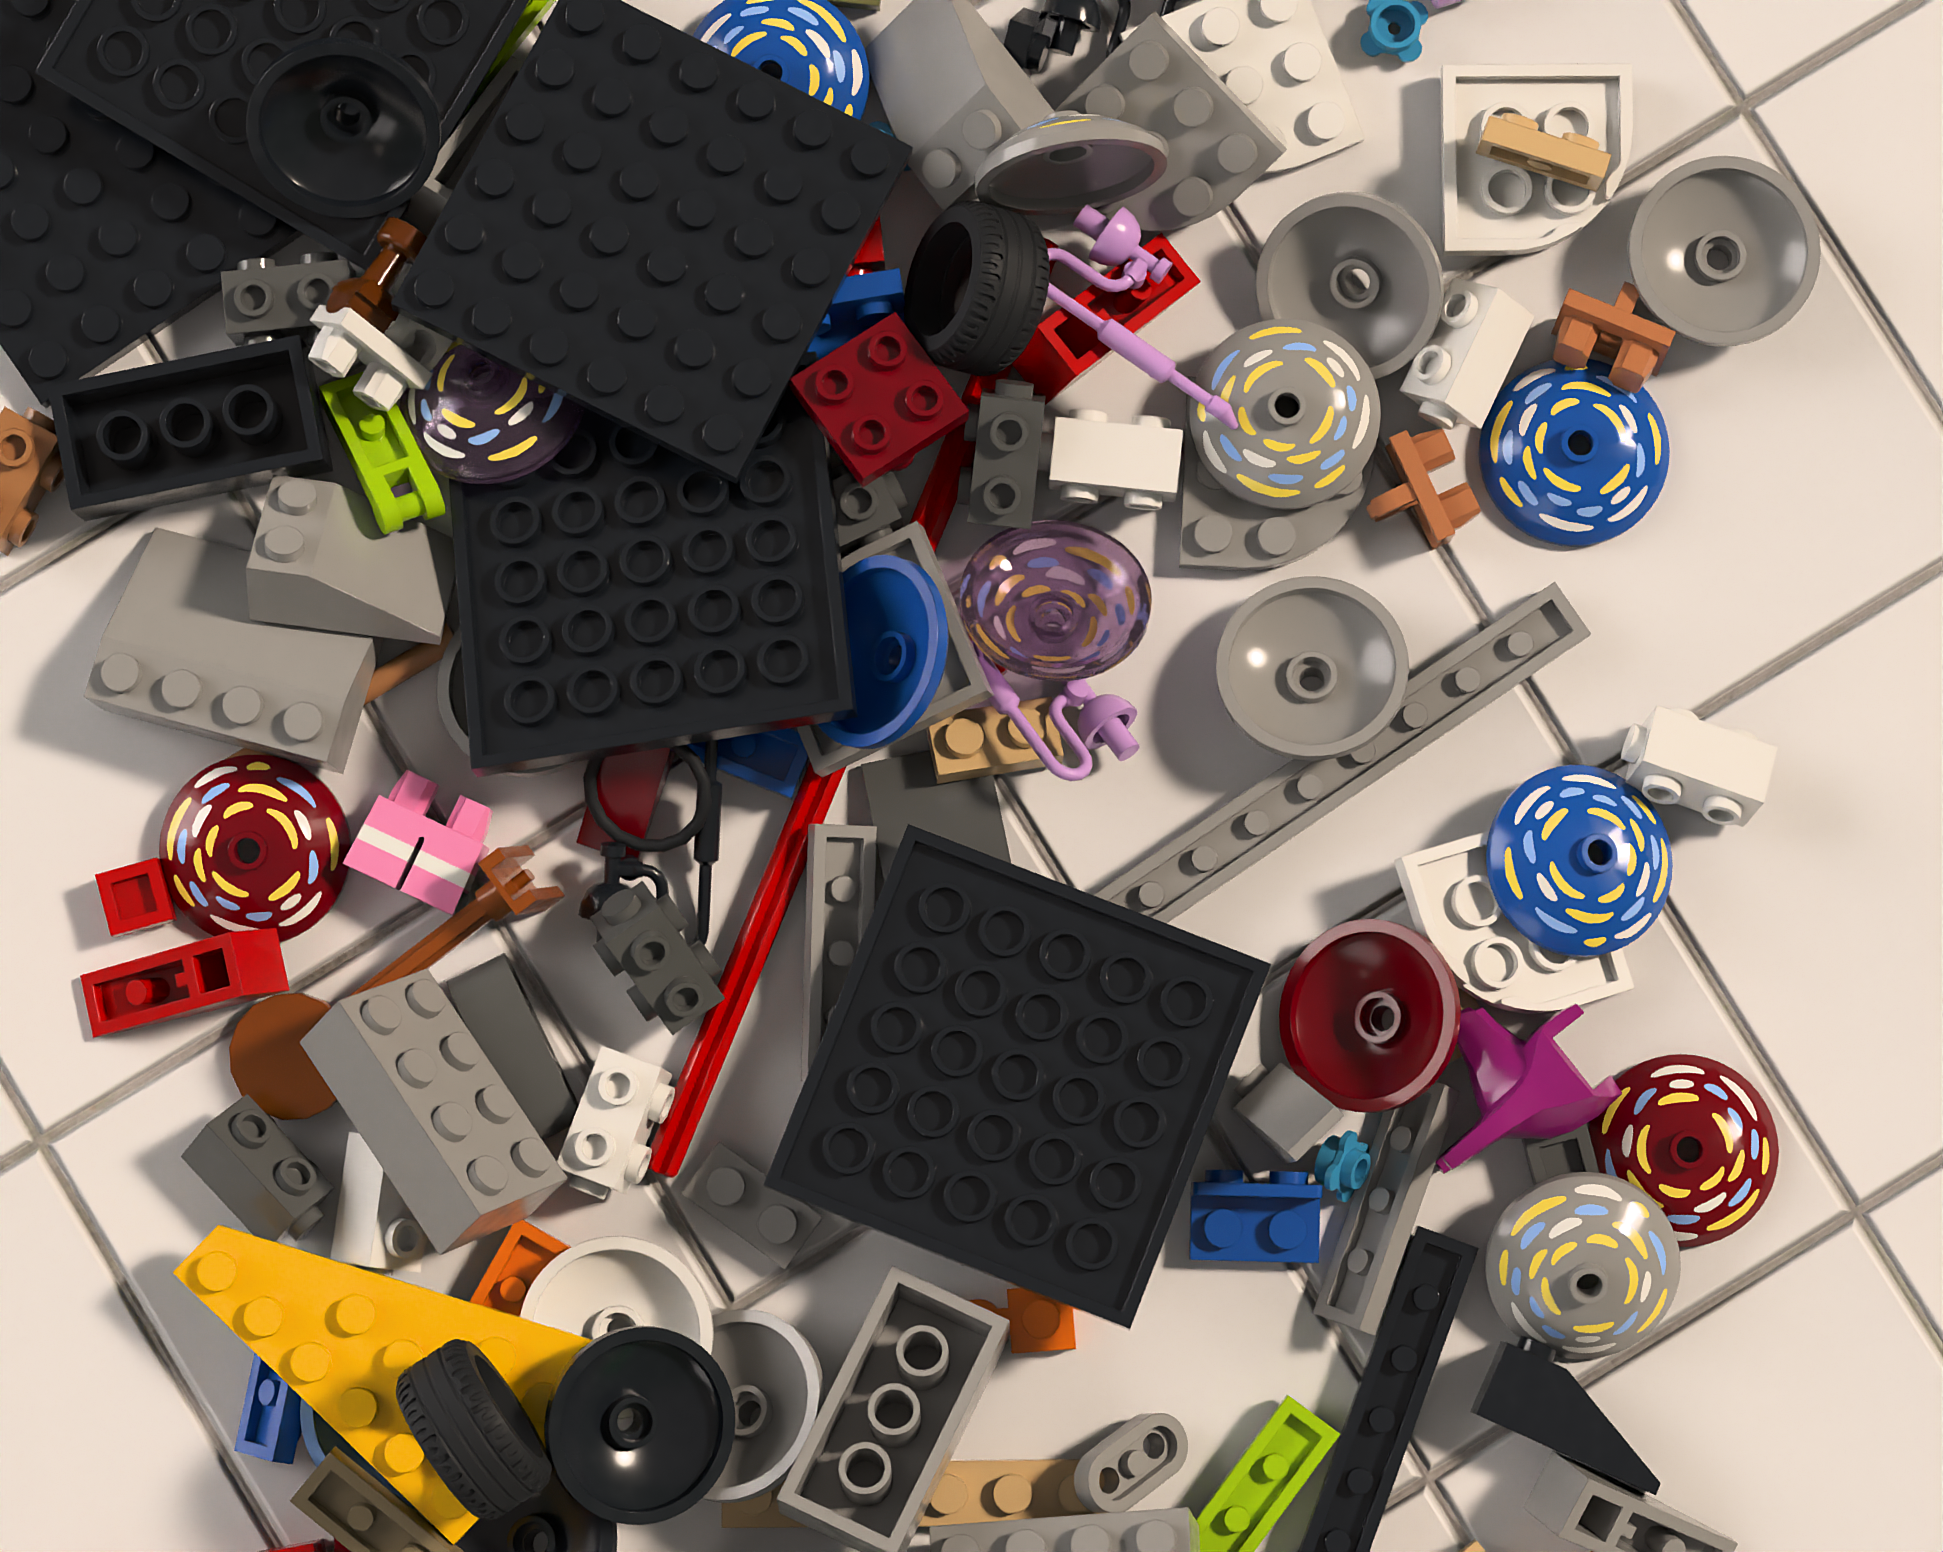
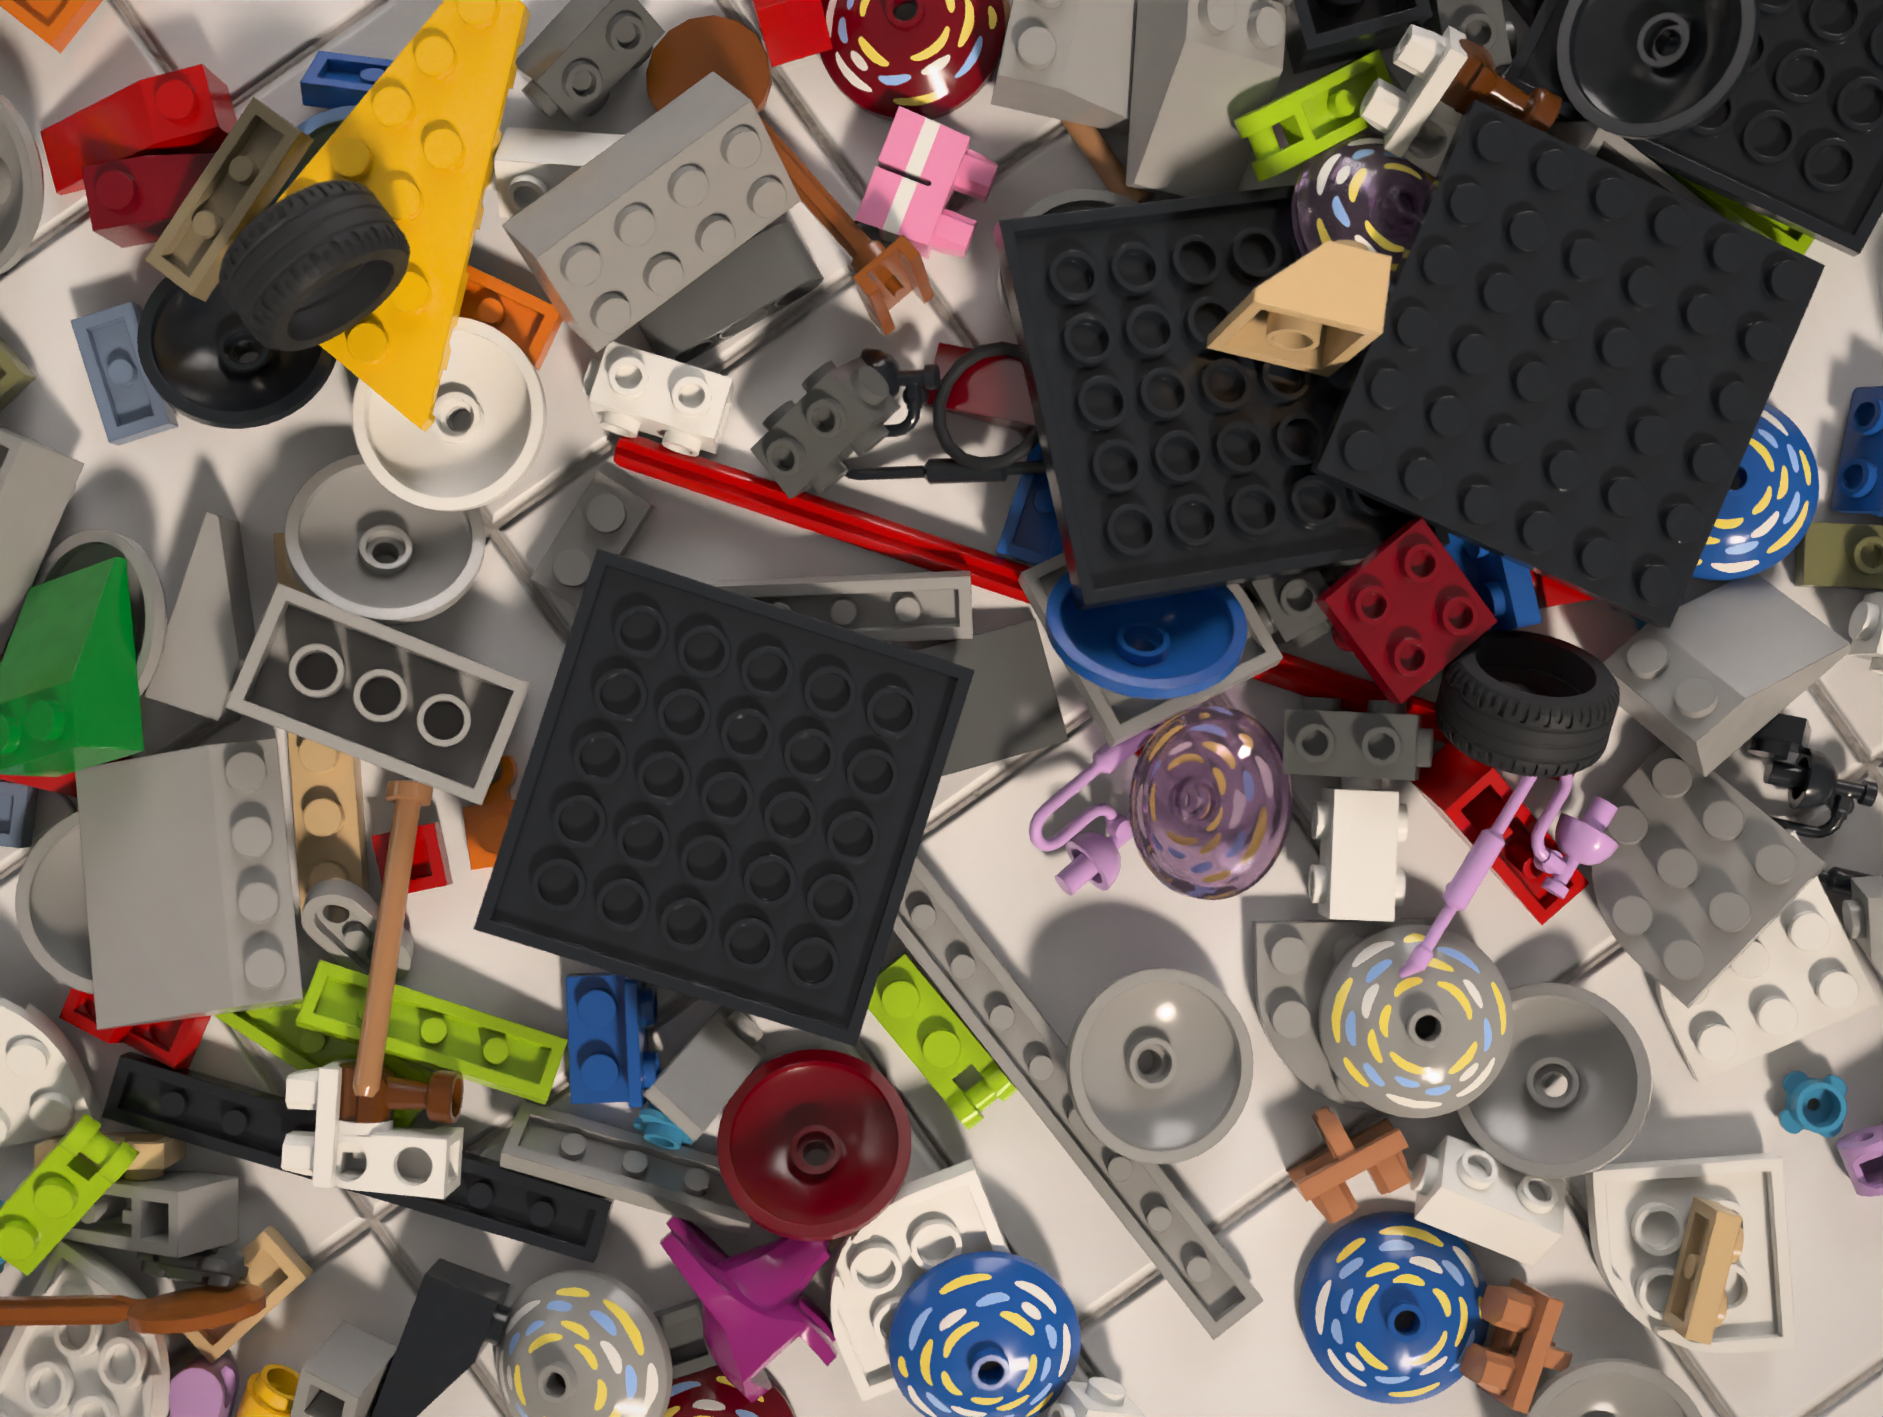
camera: 80 degrees right, 5 degrees up
(585, 470) = (1312, 311): none -> tan slope
(677, 1431) = (316, 461): black dish -> none
(988, 743) = (1064, 745): tan plate -> none
(1000, 1404) = (407, 801): none -> medium nougat bar
(1061, 1407) = (430, 858): none -> red plate
(1070, 164) = (1665, 792): light grey dish -> none
(1236, 1393) = (437, 1034): none -> lime plate
(1278, 889) = (937, 1039): none -> lime plate
(1329, 1469) = (356, 1135): none -> white hips

